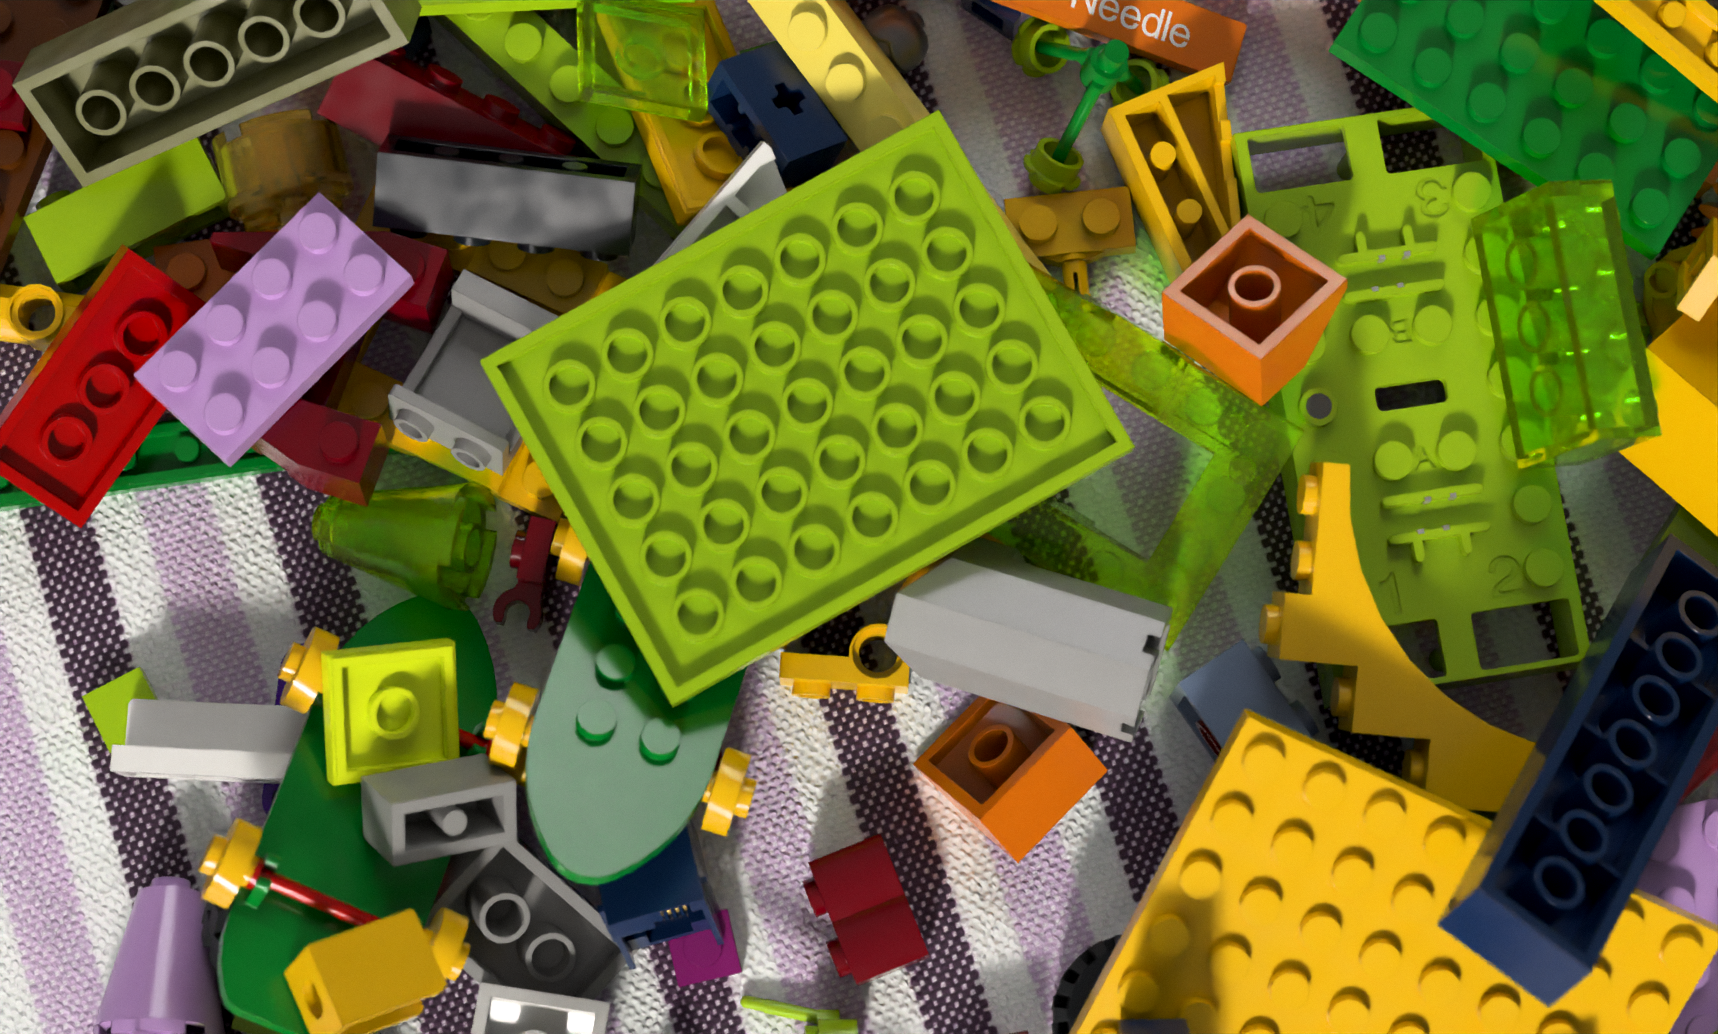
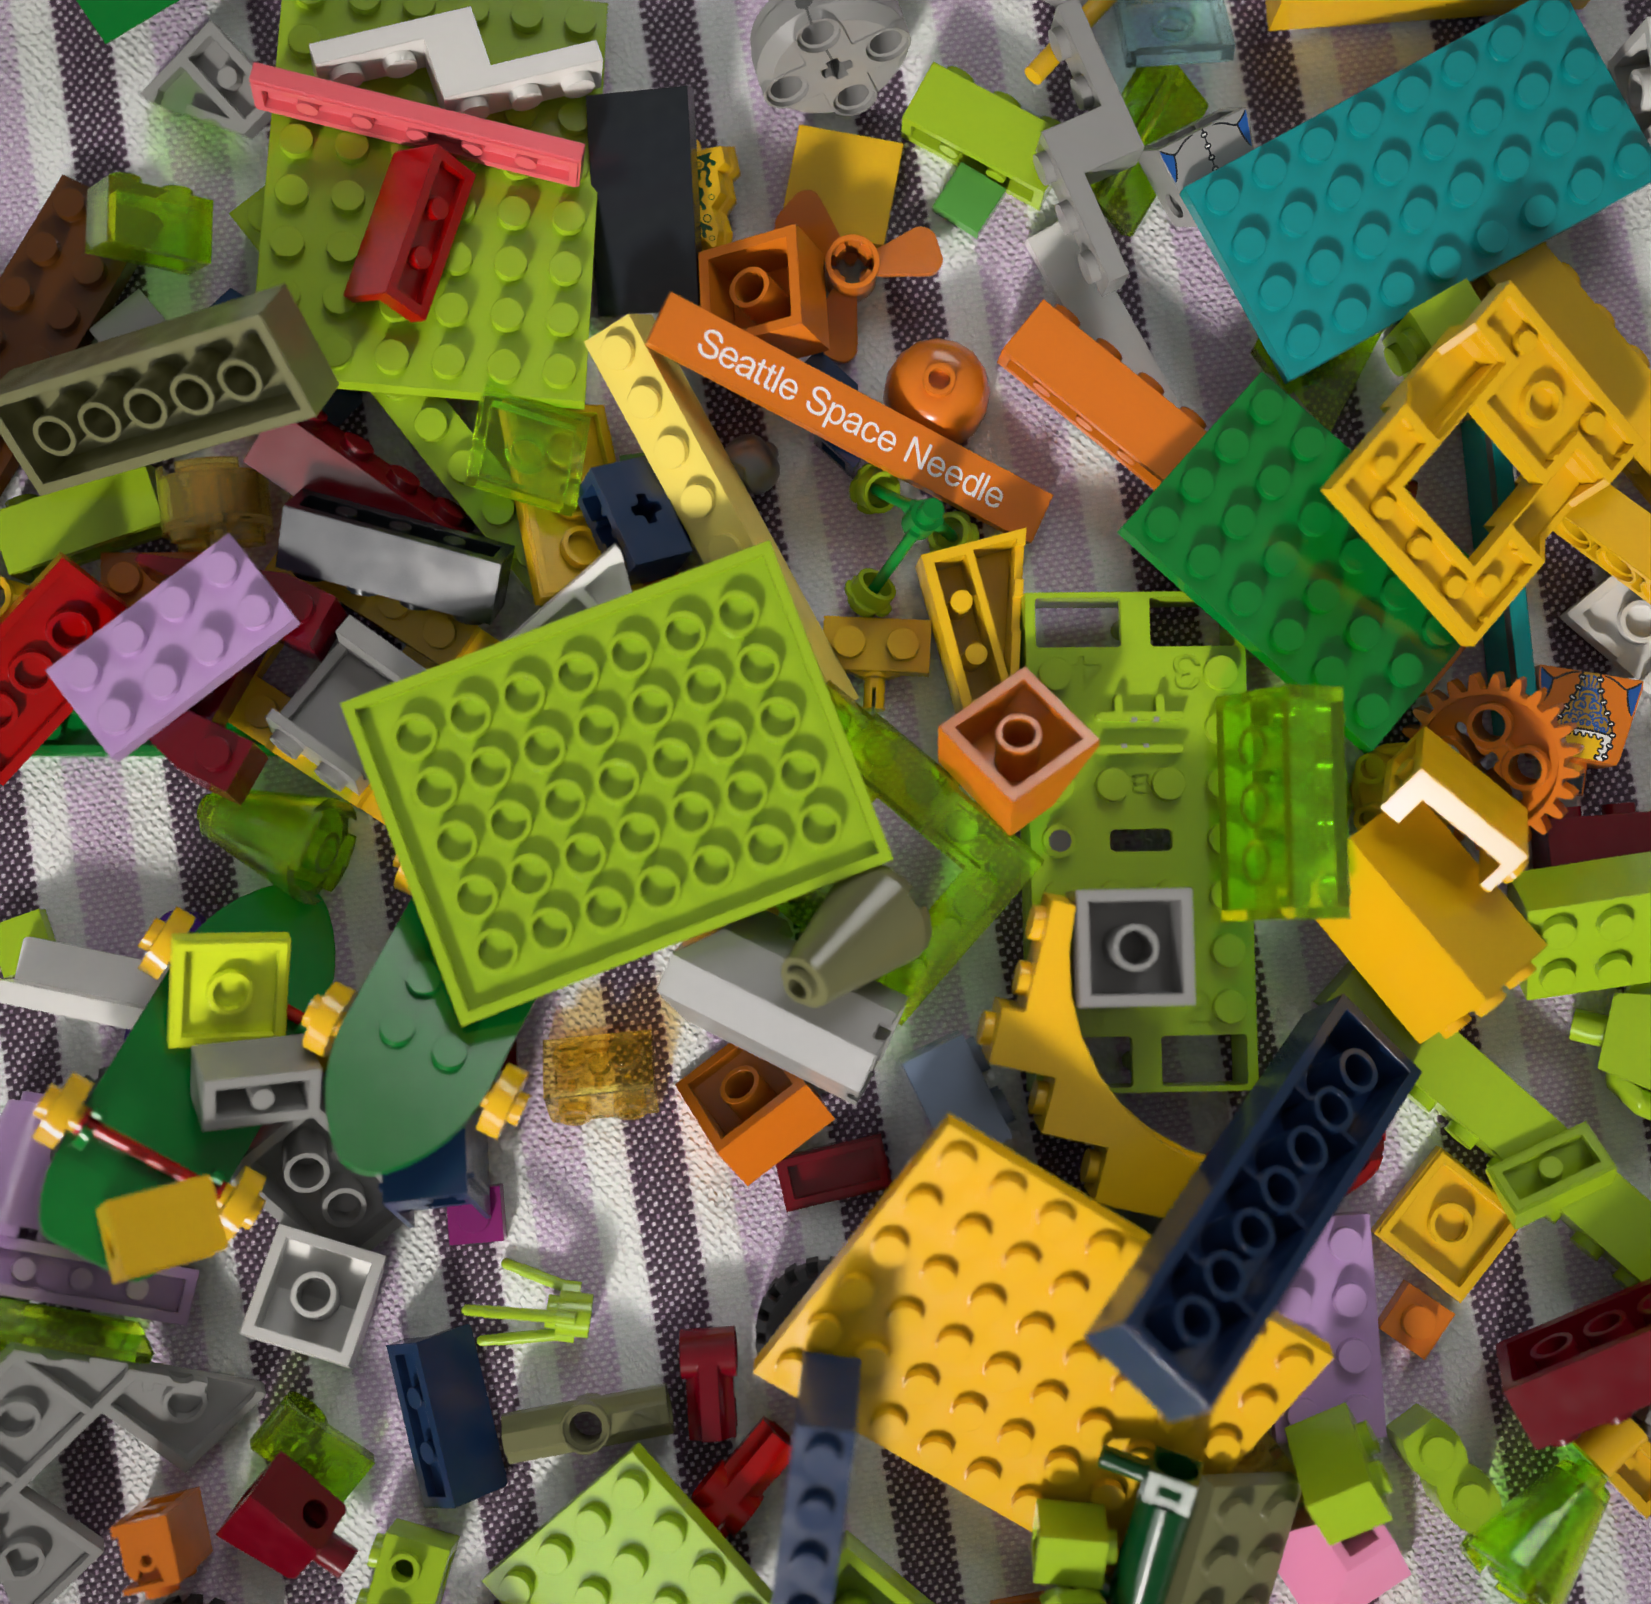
camera: 10 degrees right, 5 degrees up
(534, 564) = (376, 881): dark red plate -> none
(817, 674) = (602, 1000): yellow plate -> none
(826, 766) = (600, 1077): none -> clear yellow bracket
(866, 910) = (615, 1206): dark red brick -> none
(1108, 539) = (856, 936): none -> olive cone
(1113, 837) = (834, 1172): none -> dark red tile
(1422, 507) = (1132, 948): none -> light grey brick

